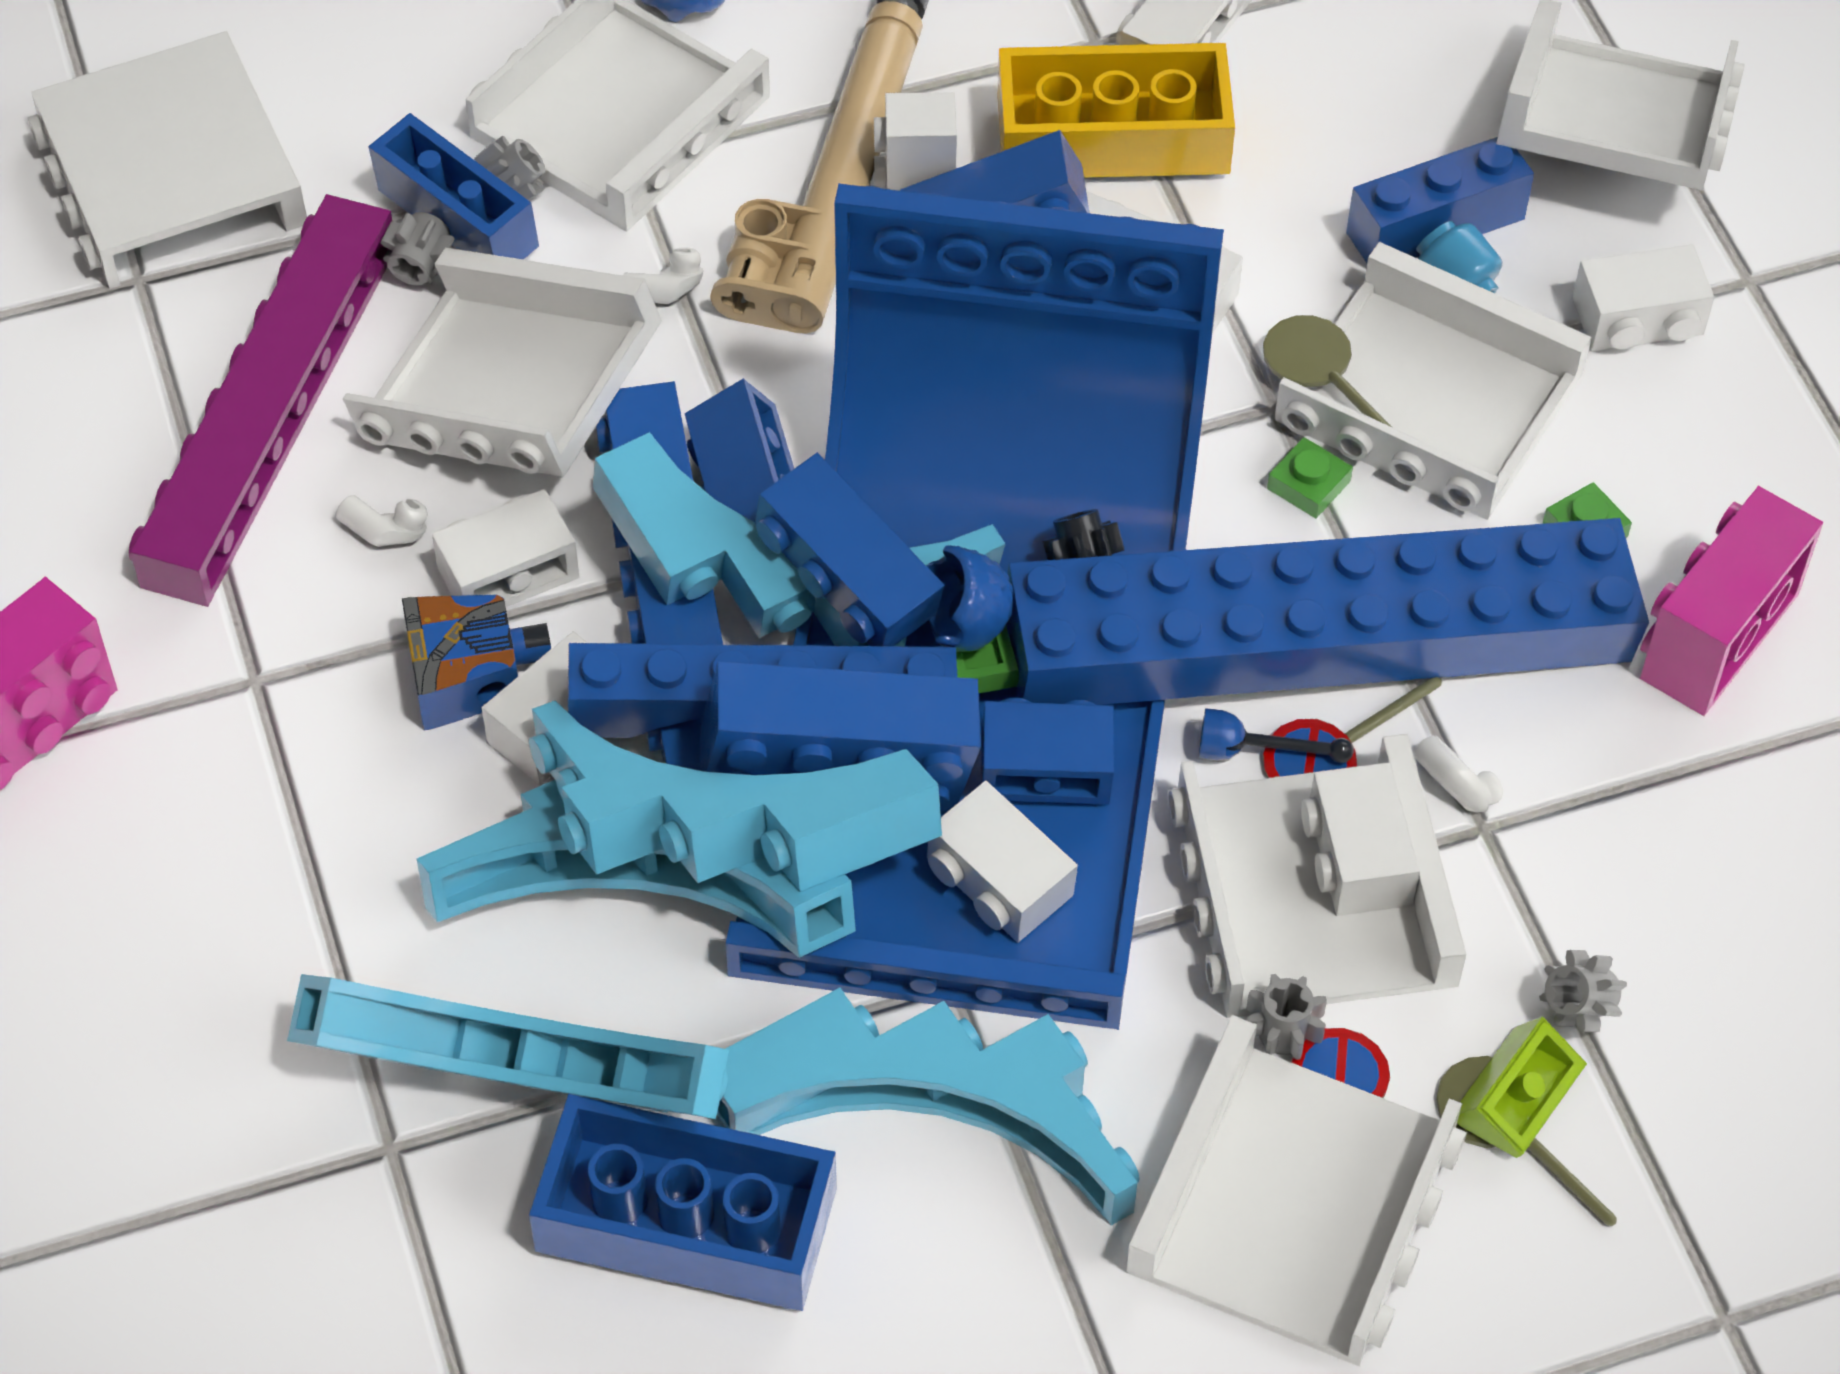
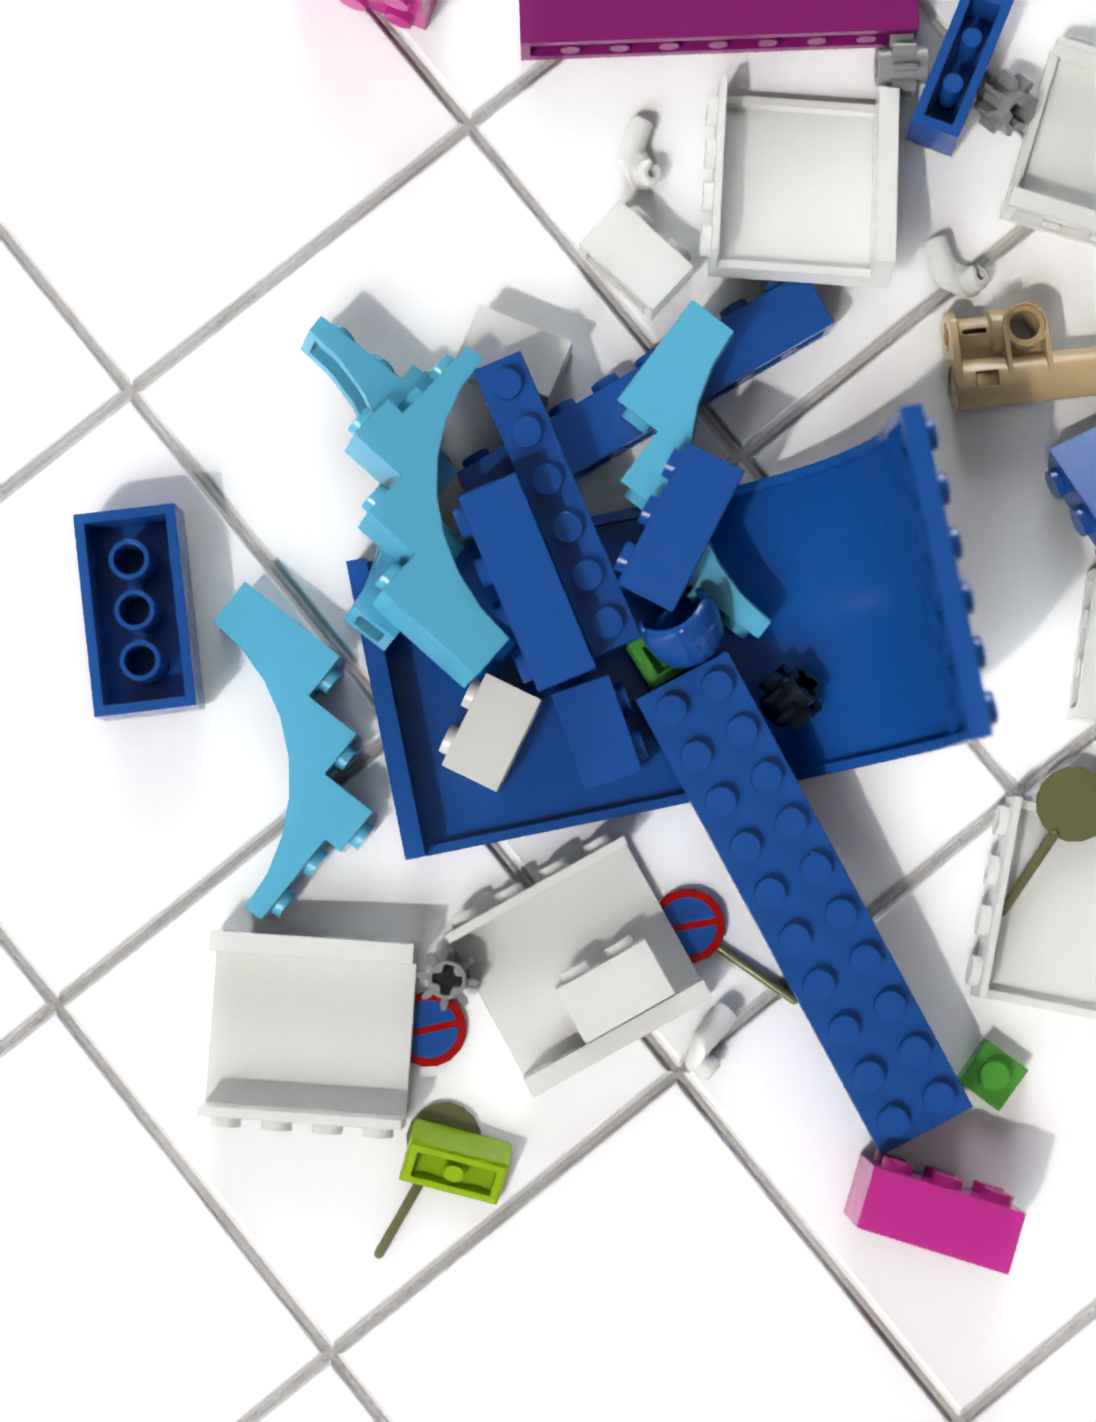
camera: 70 degrees right, 30 degrees up
(465, 653) = (535, 270): torso -> none
(509, 1047) = (196, 386): medium azure arch -> none
(738, 446) = (774, 411): blue brick -> none
(1225, 736) = (678, 857): hinge -> none
(1310, 477) = (952, 844): bright green plate -> none
(1583, 991) = (545, 1188): light grey gear -> none

